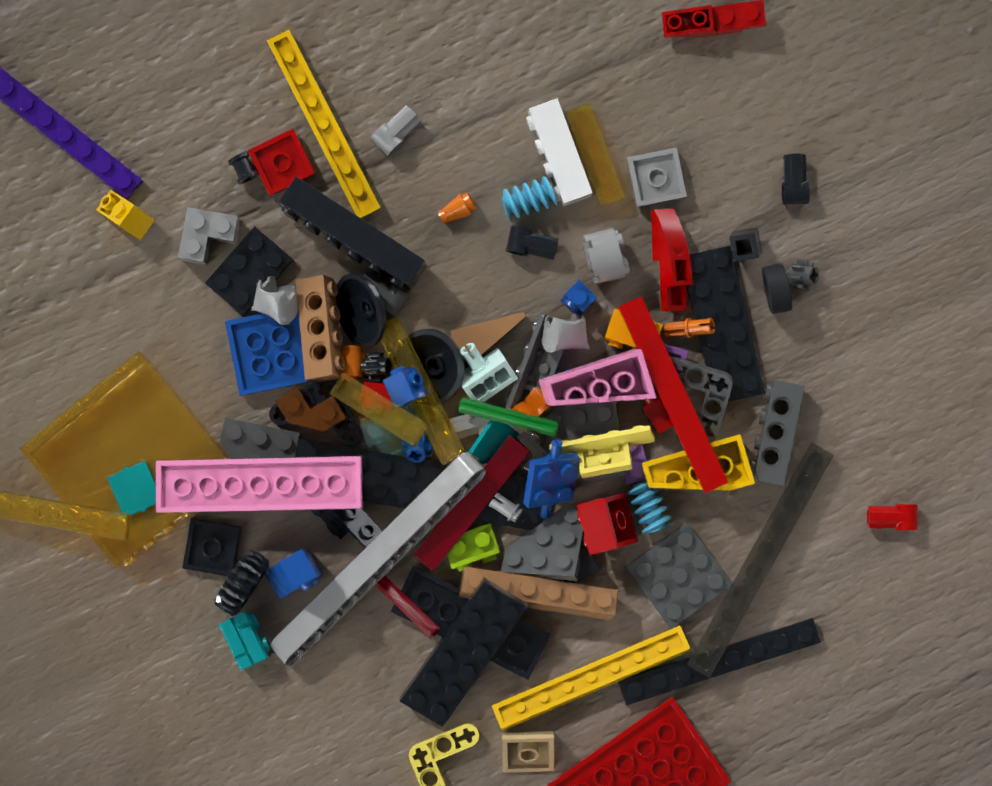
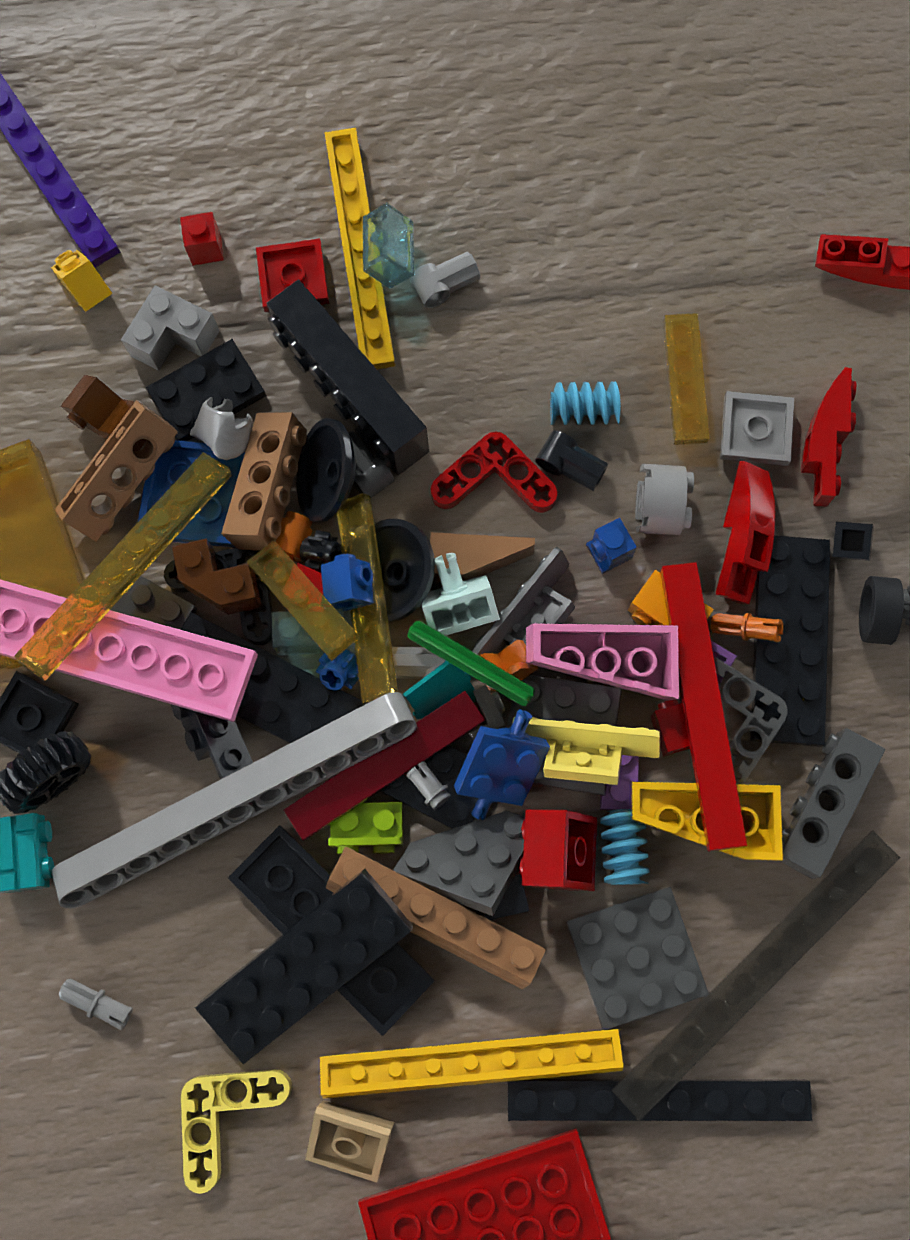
camera: 20 degrees right, 10 degrees down
(188, 313) = (97, 408): none -> reddish brown brick
(205, 155) = (201, 238): none -> red brick
(212, 356) = (116, 452): none -> medium nougat brick
(243, 168) = (243, 267): black bush -> none
(246, 422) = (122, 567): none -> clear yellow plate
(294, 573) = (120, 780): blue wedge -> none
(330, 720) = (95, 1003): none -> light grey axle
(347, 121) = (388, 246): none -> clear light blue brick
(407, 607) = (250, 879): dark red axle -> none
(458, 208) = (491, 391): orange cone -> none
(472, 263) = (489, 464): none -> red beam
(559, 151) = (641, 361): white brick -> none
(565, 334) = (580, 582): light grey hair -> none
(706, 159) = (825, 435): none -> red slope

